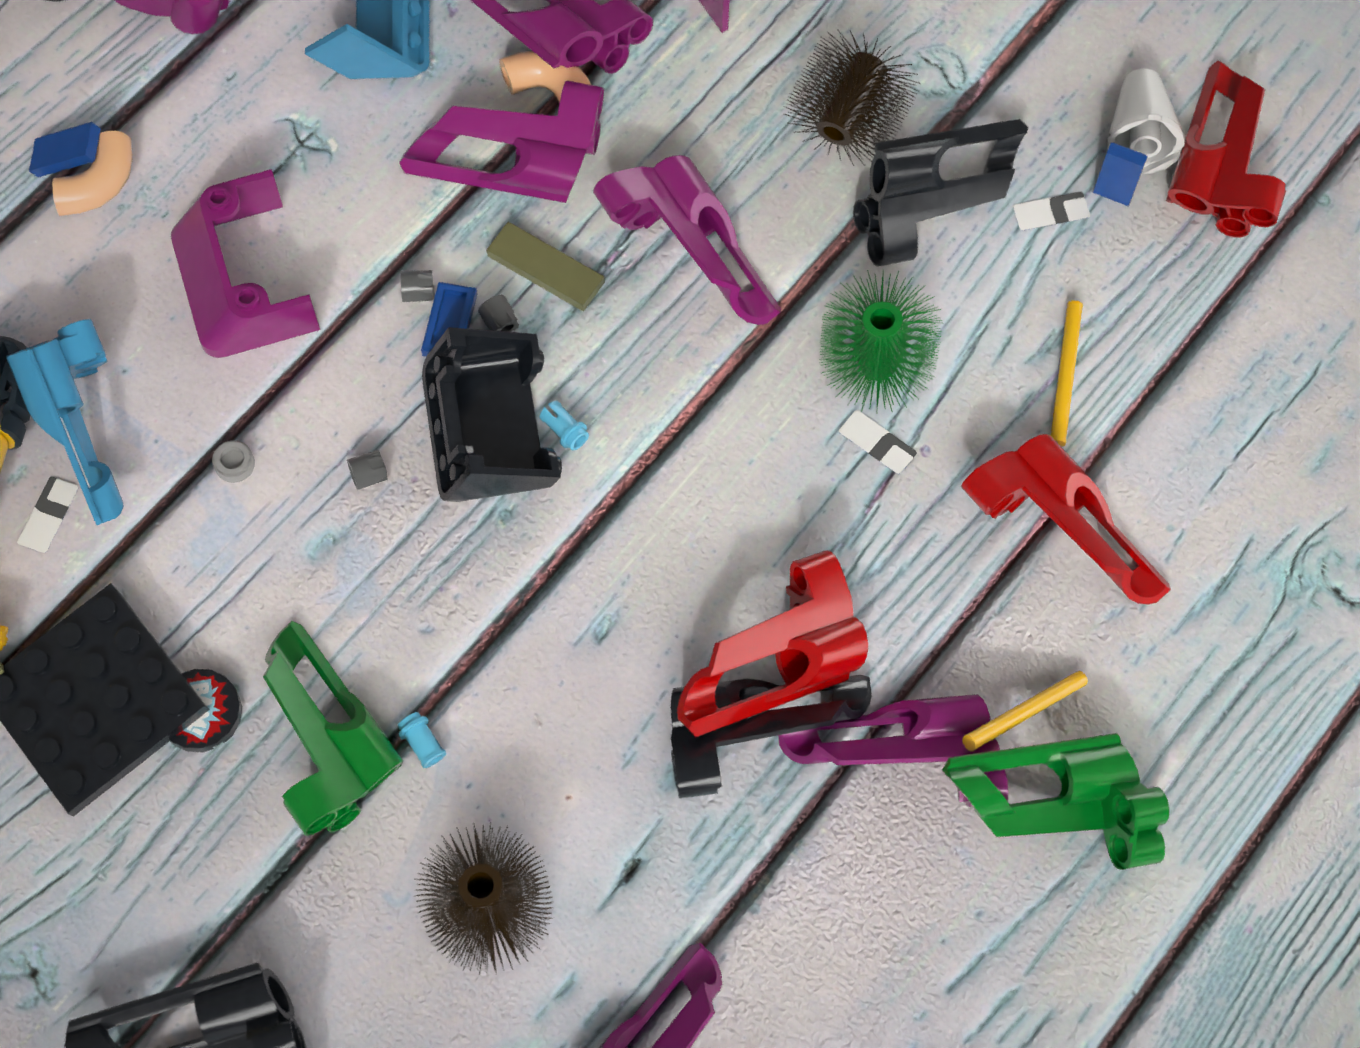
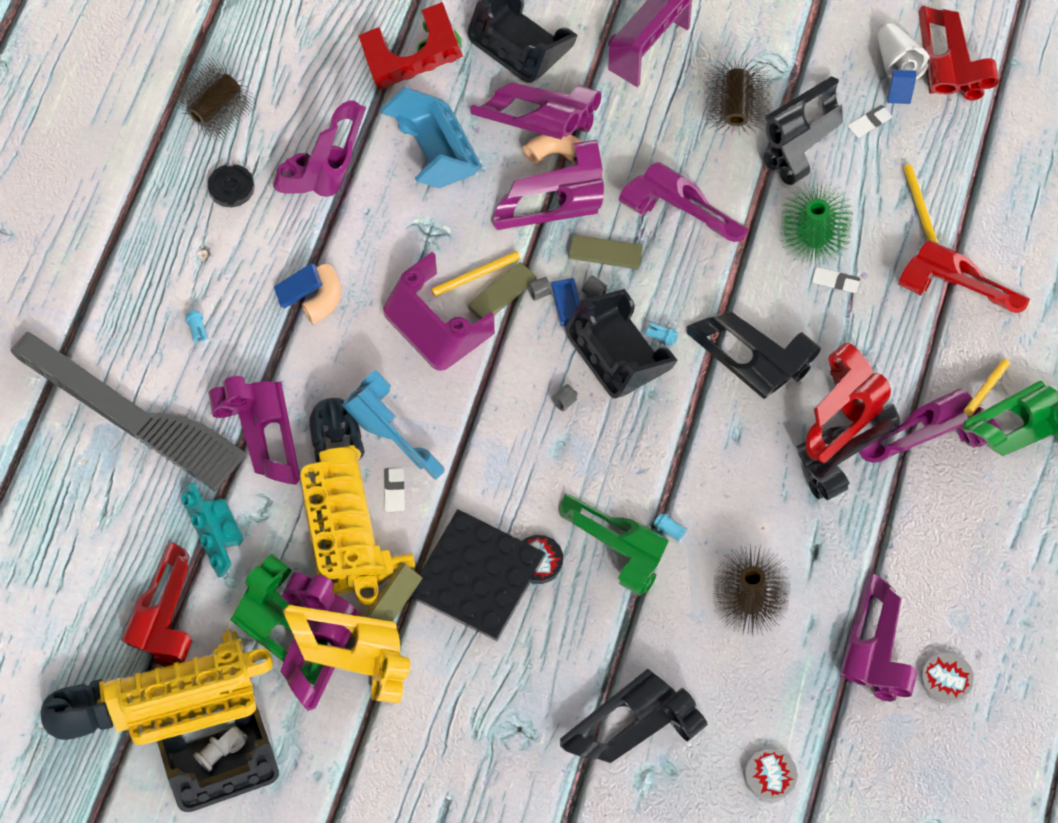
camera: 20 degrees left, 5 degrees down
(233, 461) = (485, 421): light grey tile -> none
(336, 227) = (476, 273): none -> yellow bar
(359, 270) = (502, 291): none -> olive tile
(699, 539) = (770, 363): none -> black panel

